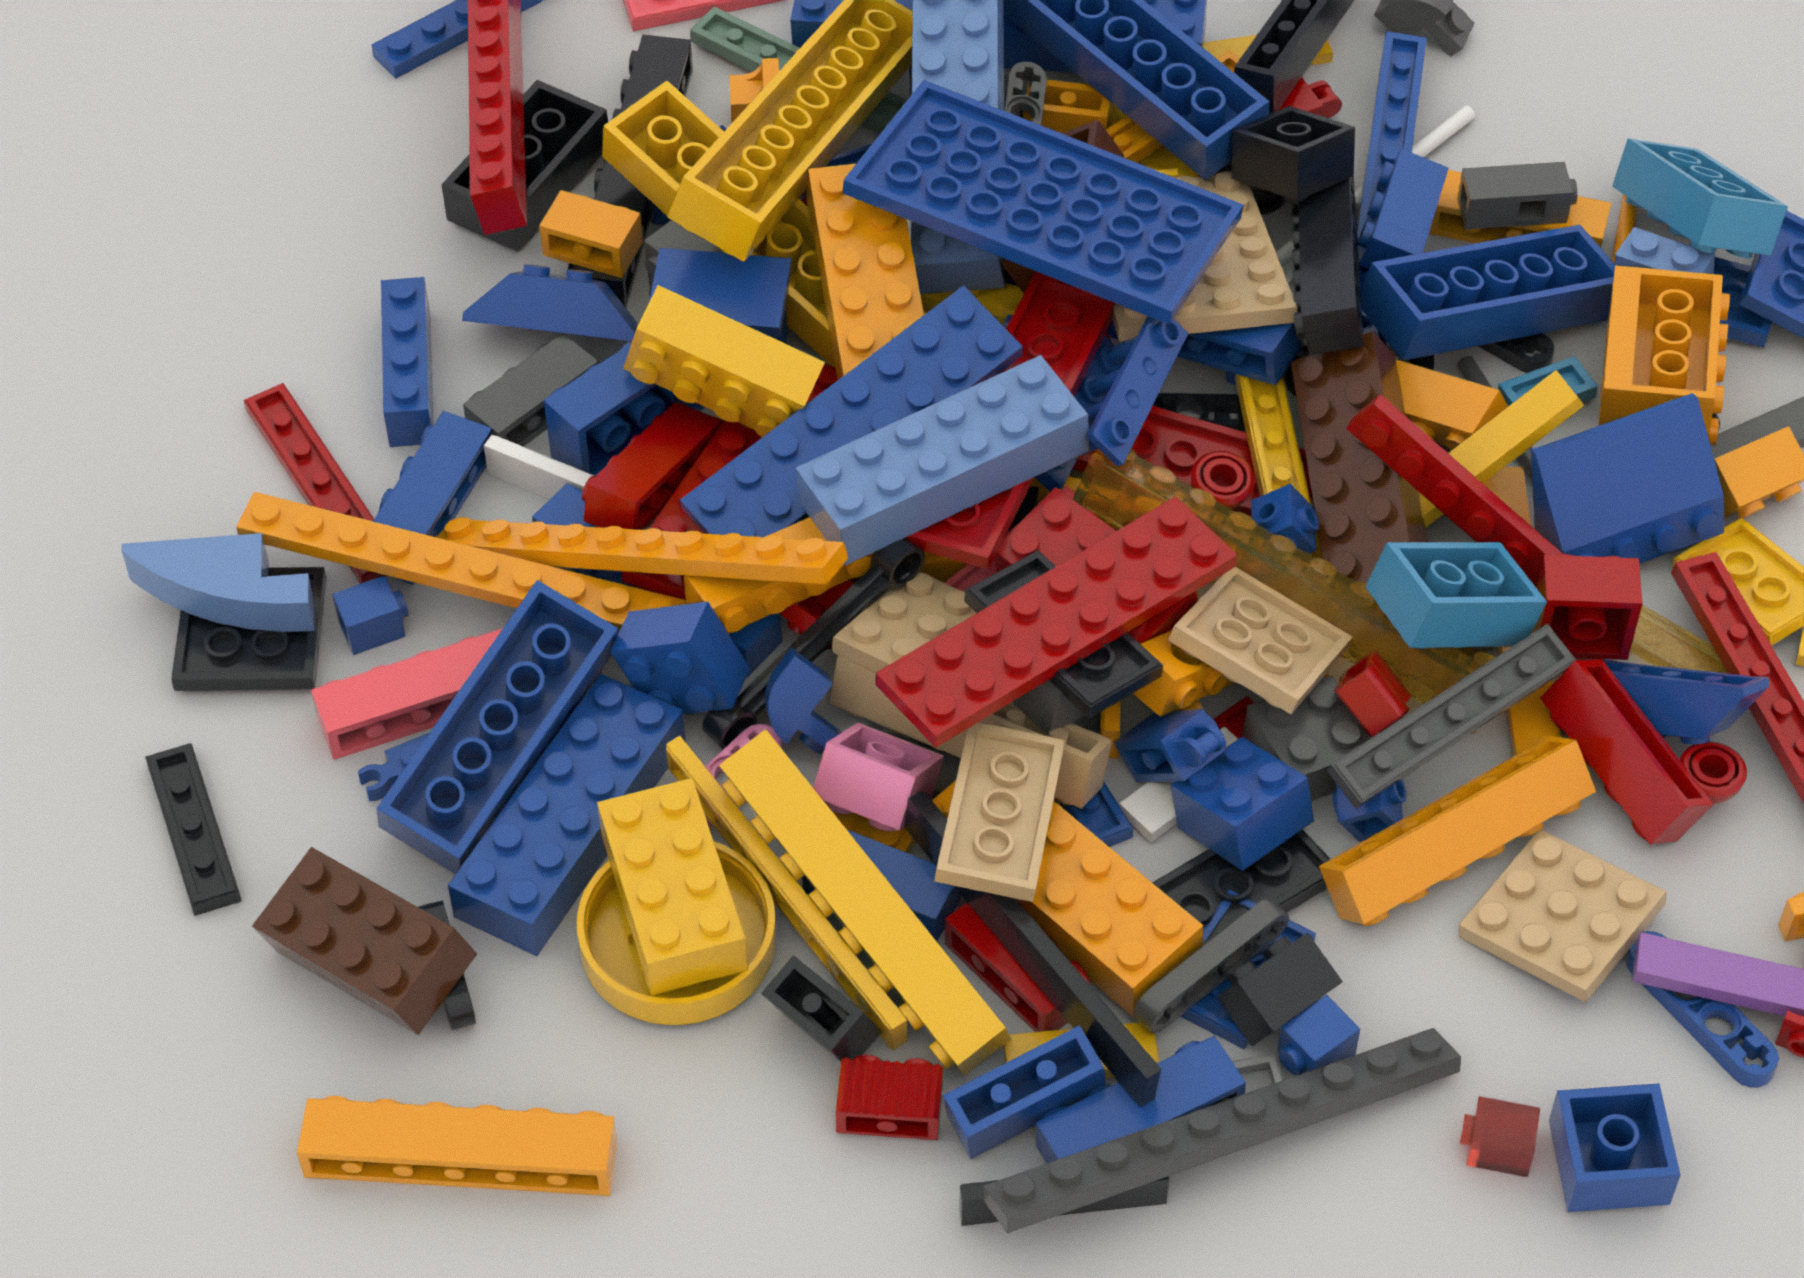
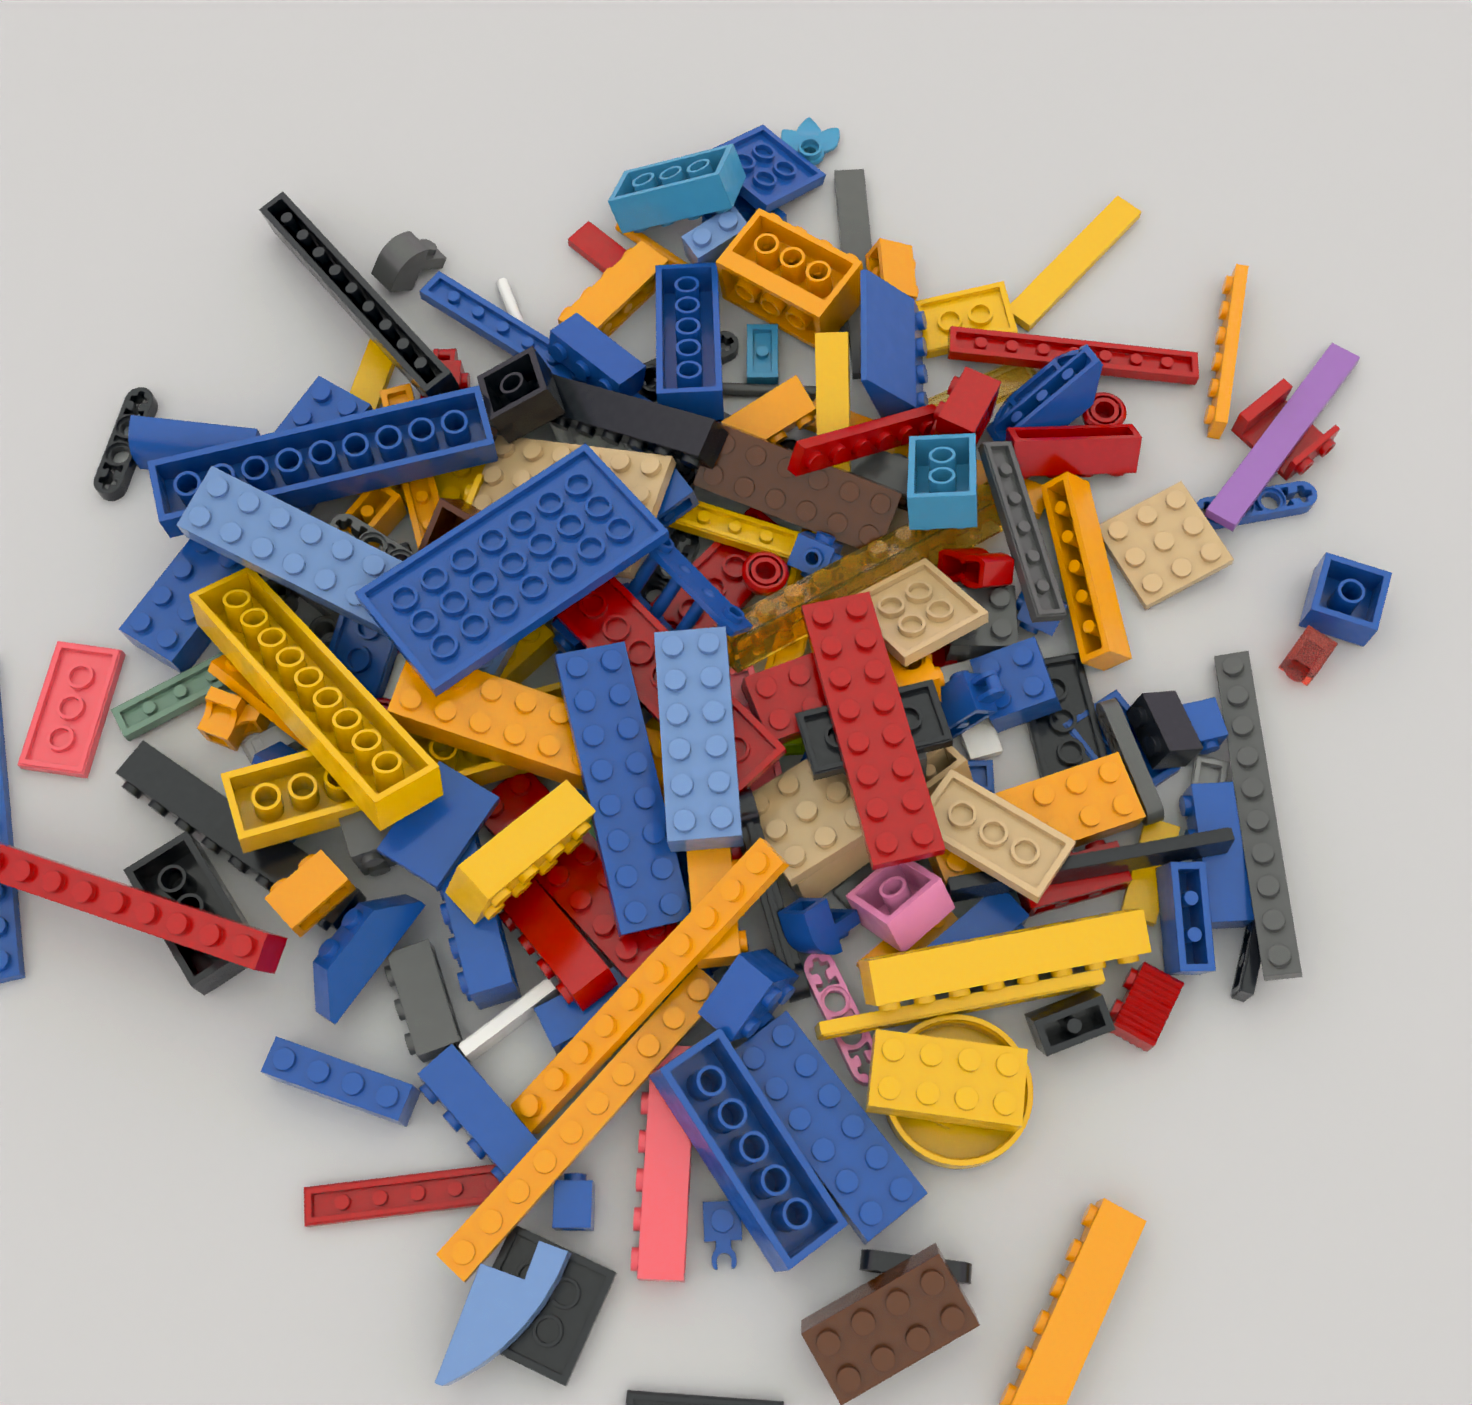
camera: 65 degrees left, 15 degrees up
(1516, 195) = (615, 288): dark grey brick -> none
(1588, 169) = (596, 246): none -> red tile

